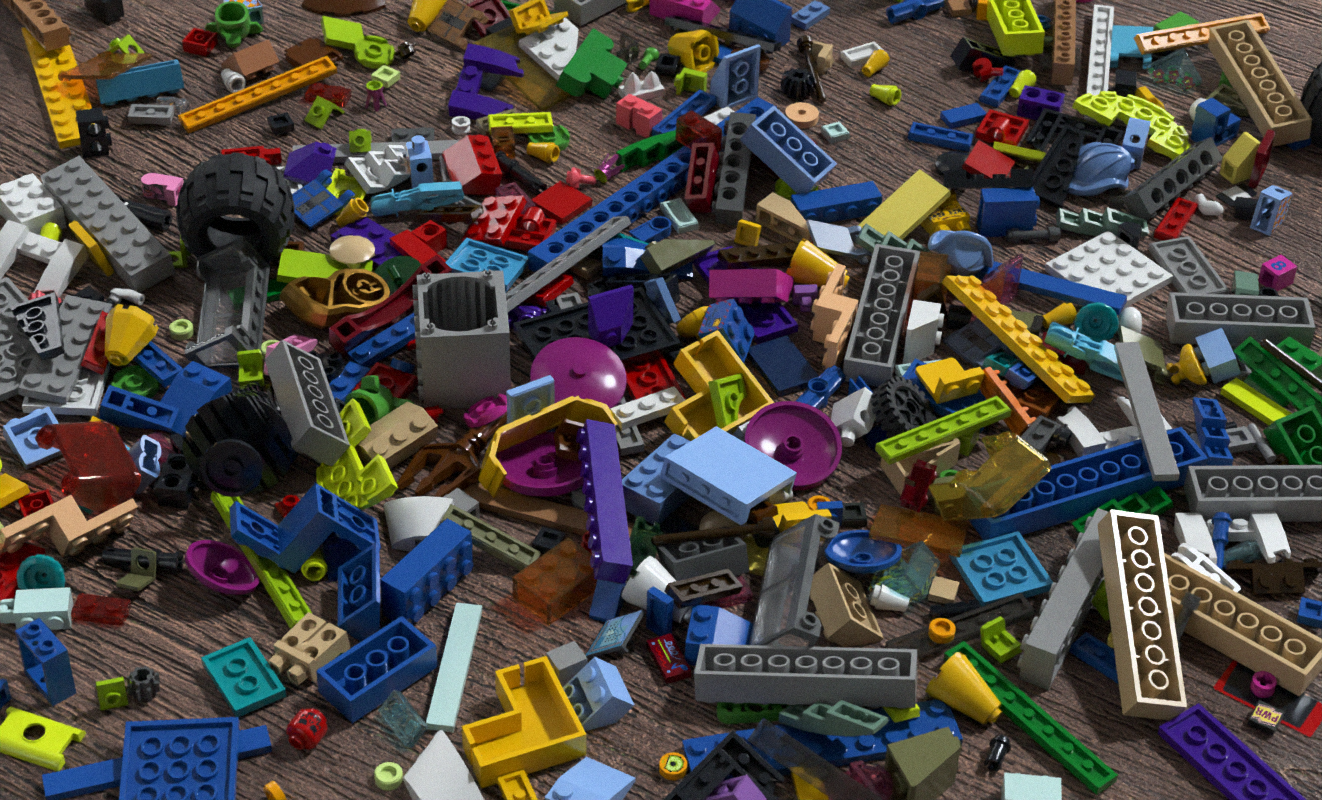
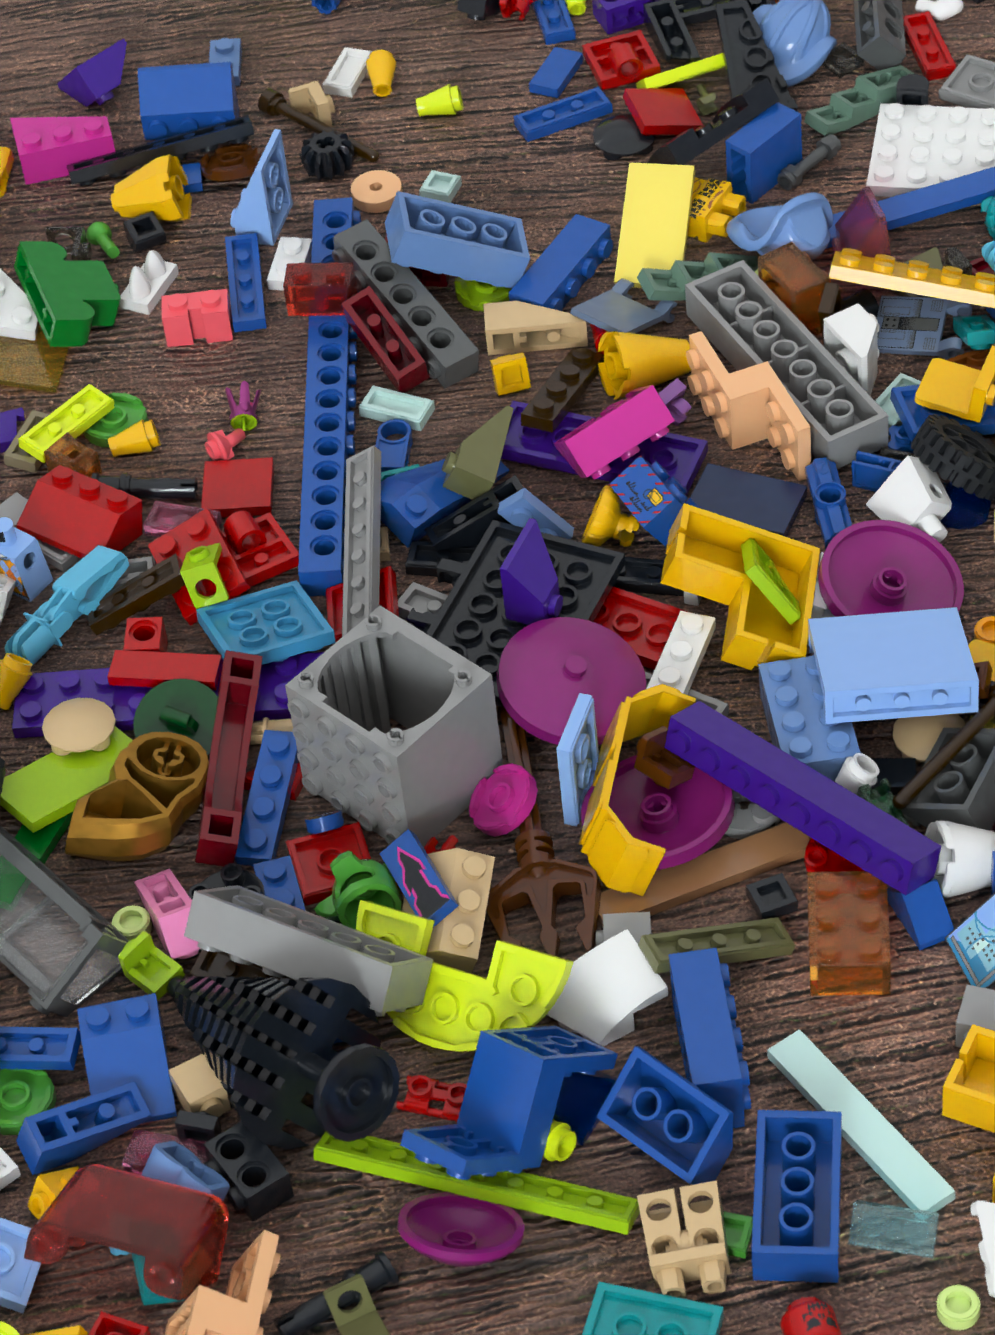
camera: 35 degrees left, 5 degrees up
(393, 410) = (418, 878): none -> tile
(482, 217) = (202, 564): none -> lime bracket
(648, 150) = (270, 340): green slope -> none
(649, 509) = (857, 772): none -> white cone
(690, 80) = (200, 233): lime bracket -> none
(1063, 315) = (958, 231): yellow cone -> none

